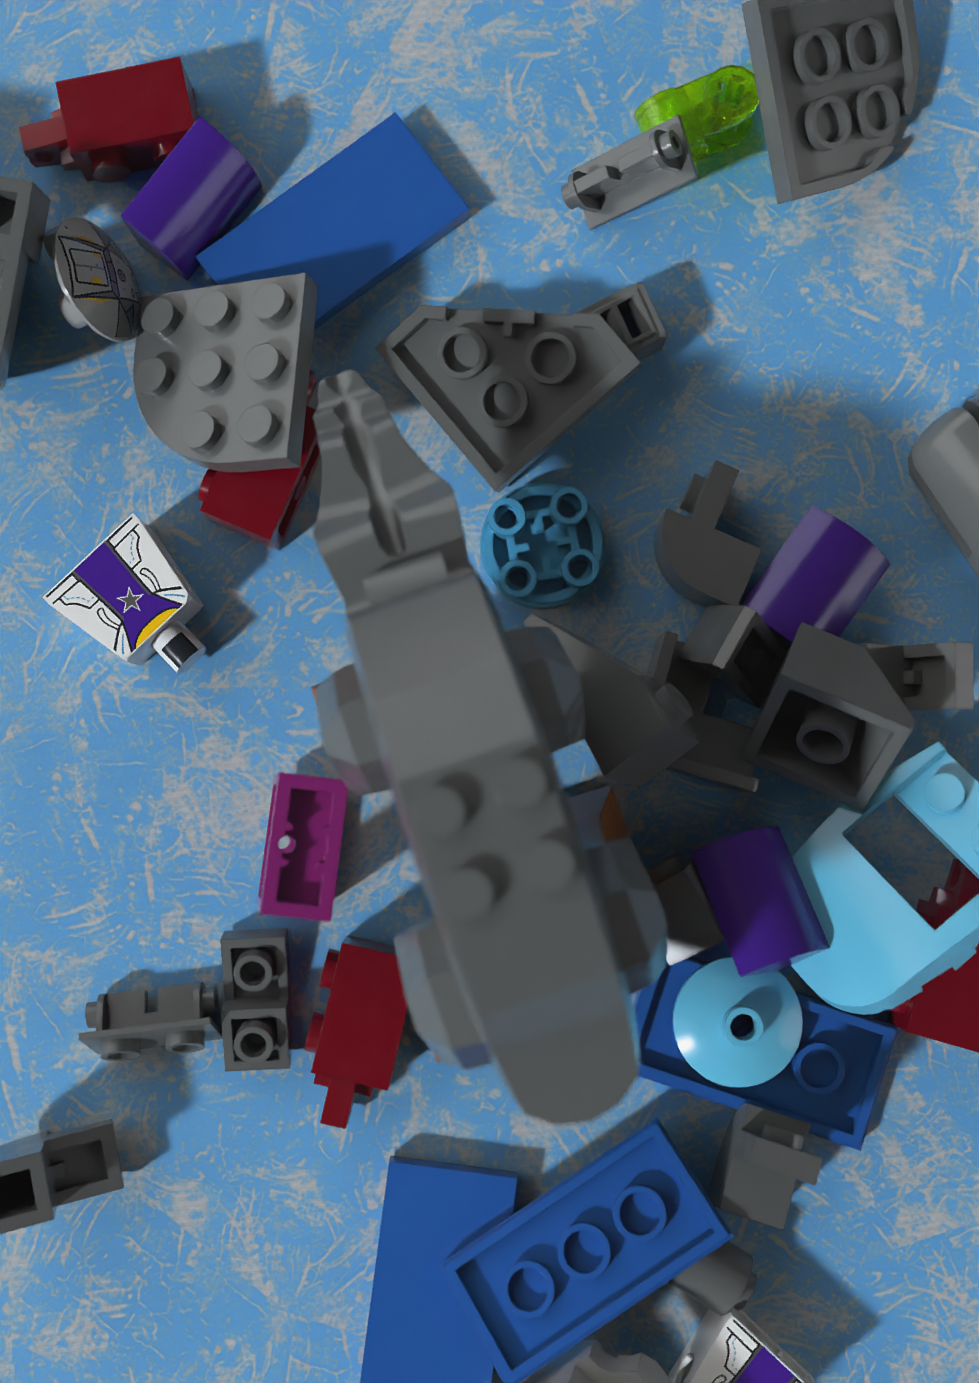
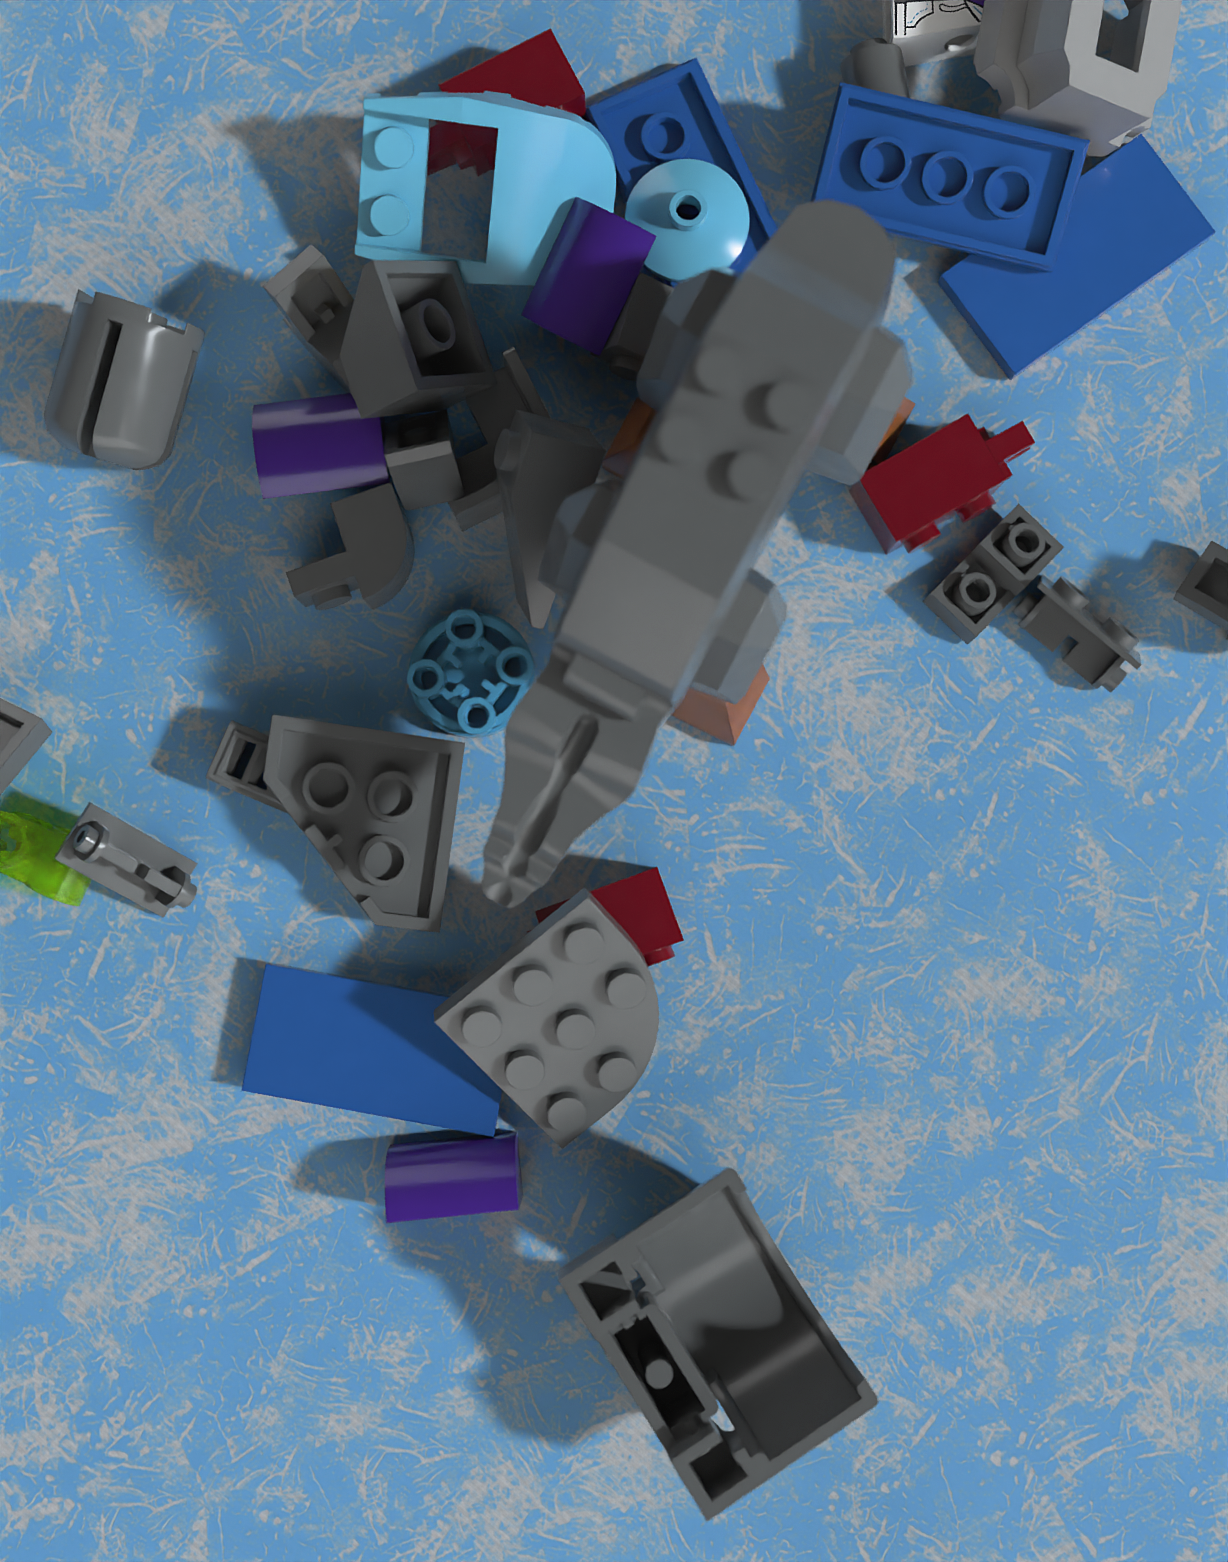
camera: 125 degrees left, 0 degrees up
(94, 280) = (584, 1187): light grey dish -> none
(115, 121) = (445, 1292): dark red hinge -> none
(132, 598) = (794, 933): torso -> none
(304, 874) = (870, 612): magenta window -> none
(761, 1164) = (772, 112): dark grey brick -> none

